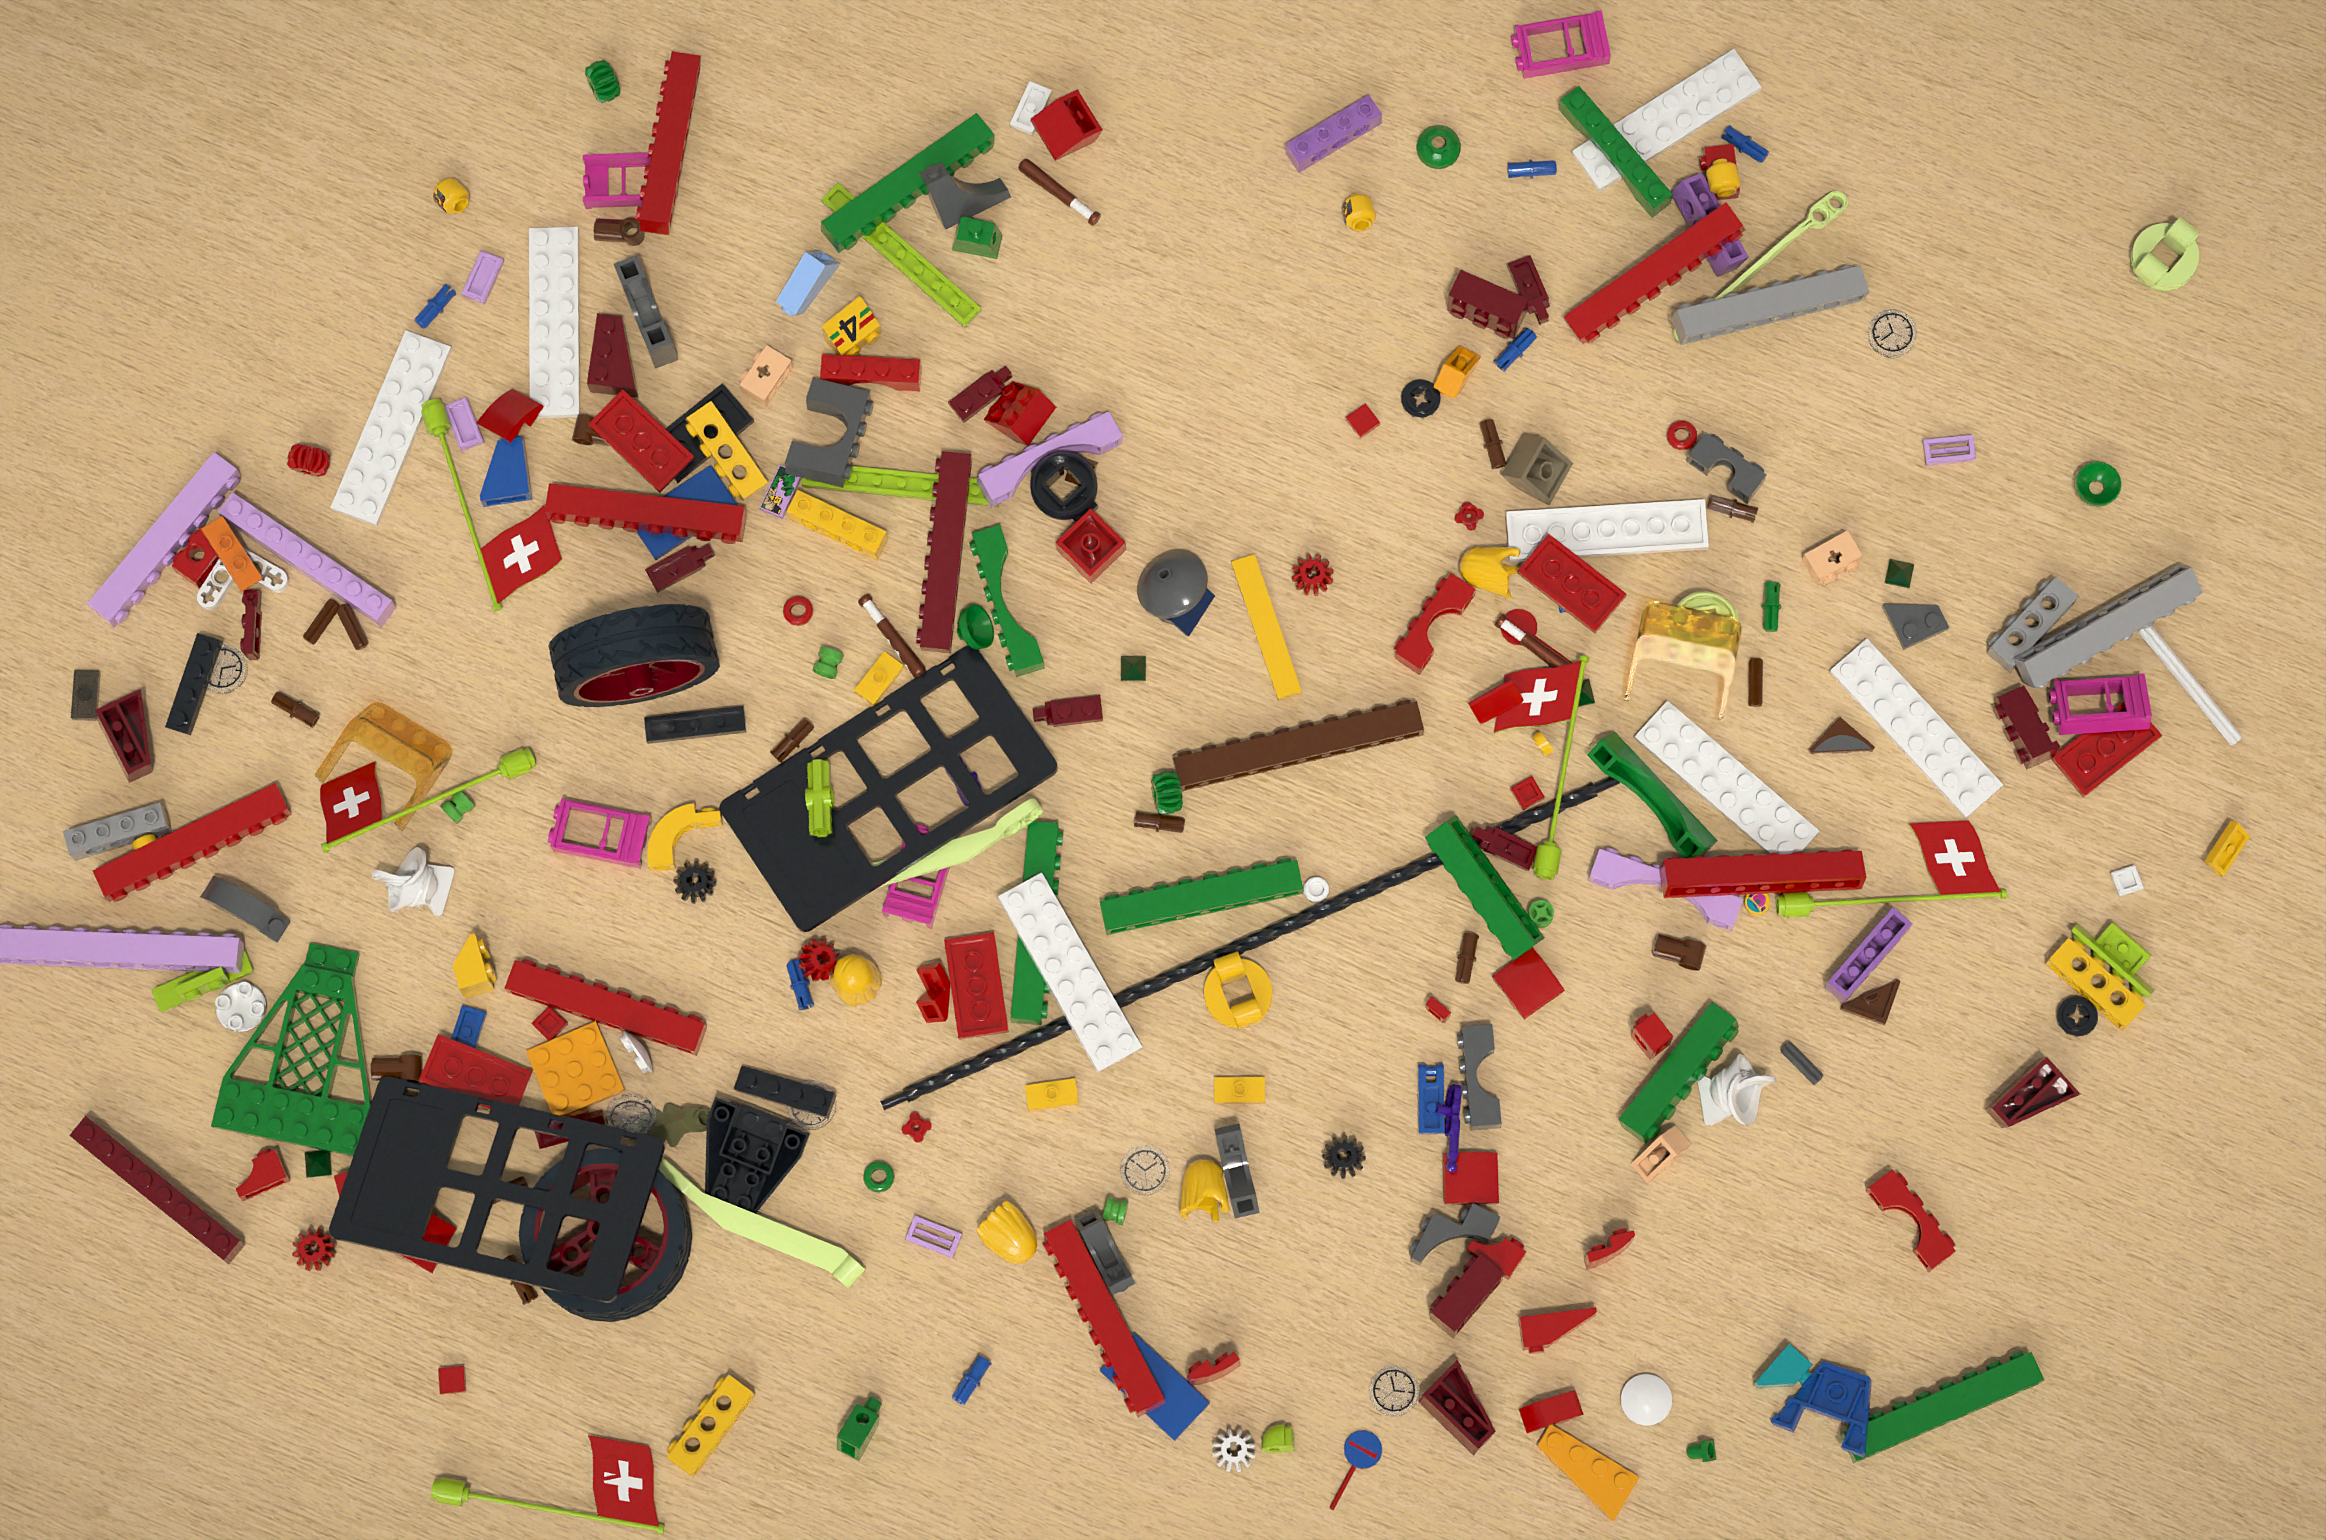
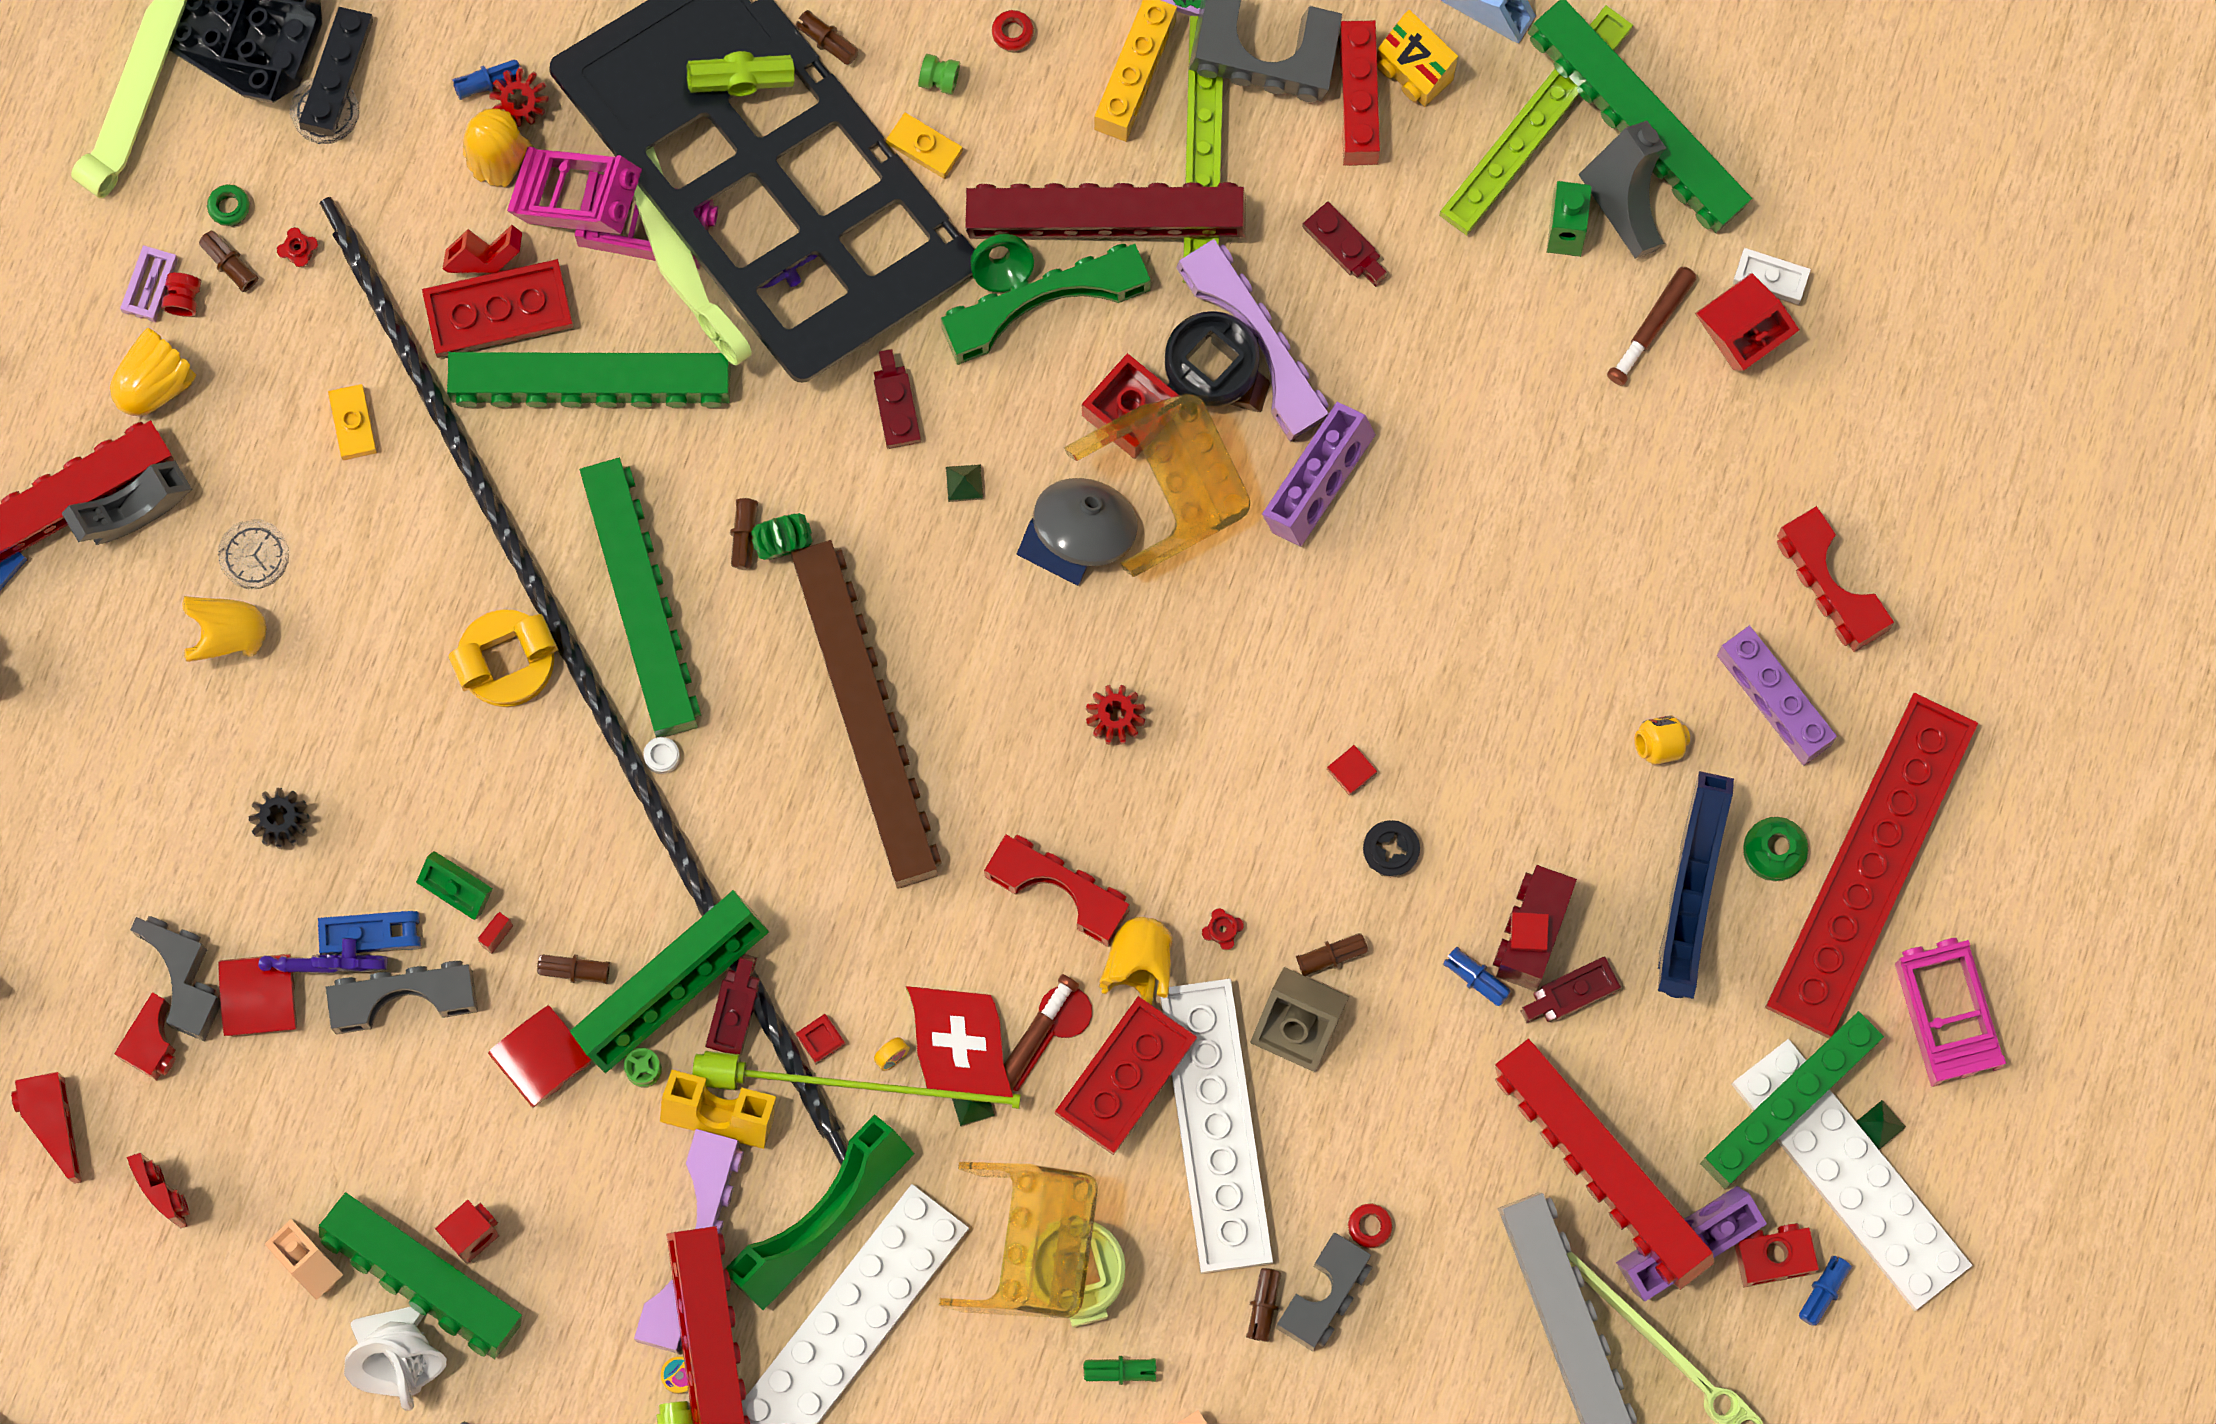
camera: 80 degrees right, 0 degrees up
(886, 950) = (611, 202): none -> dark pink door
(904, 652) = (978, 162): copper piece -> none
(922, 1178) = (228, 261): none -> reddish brown axle
(946, 1211) = (181, 294): none -> red wheel
(1020, 412) = (1319, 297): red slope -> none
(1069, 972) = (515, 424): white plate -> none
(1115, 1210) = (191, 516): bright green wheel -> none
(1147, 505) = (1188, 466): none -> clear yellow windscreen
(1151, 422) = (1318, 474): none -> medium lavender brick
(1228, 102) = (1857, 616): none -> red arch
(1236, 1171) = (248, 676): dark grey arch -> none
(1239, 1090) = (370, 672): yellow plate -> none
(1266, 627) = (1036, 658): yellow tile -> none
(1401, 1036) = (454, 885): none -> green plate
(1455, 84) = (1871, 865): none -> red plate
(1456, 371) = (1435, 895): light orange slope -> none
(1465, 1295) = (83, 992): dark red brick -> none
(1467, 201) = (1693, 885): none -> dark blue arch
(1496, 302) = (1529, 932): none -> red tile
(1496, 701) = (947, 983): red slope -> none
(1531, 169) = (1754, 982): blue axle -> none
(1583, 846) = (692, 1107): none -> yellow arch
(1633, 98) = (1880, 1124): none -> dark green slope
(1686, 953) = (596, 1277): reddish brown piece -> none
(1723, 178) = (1759, 1254): yellow head -> none
(1755, 682) = (1005, 1354): reddish brown axle -> none

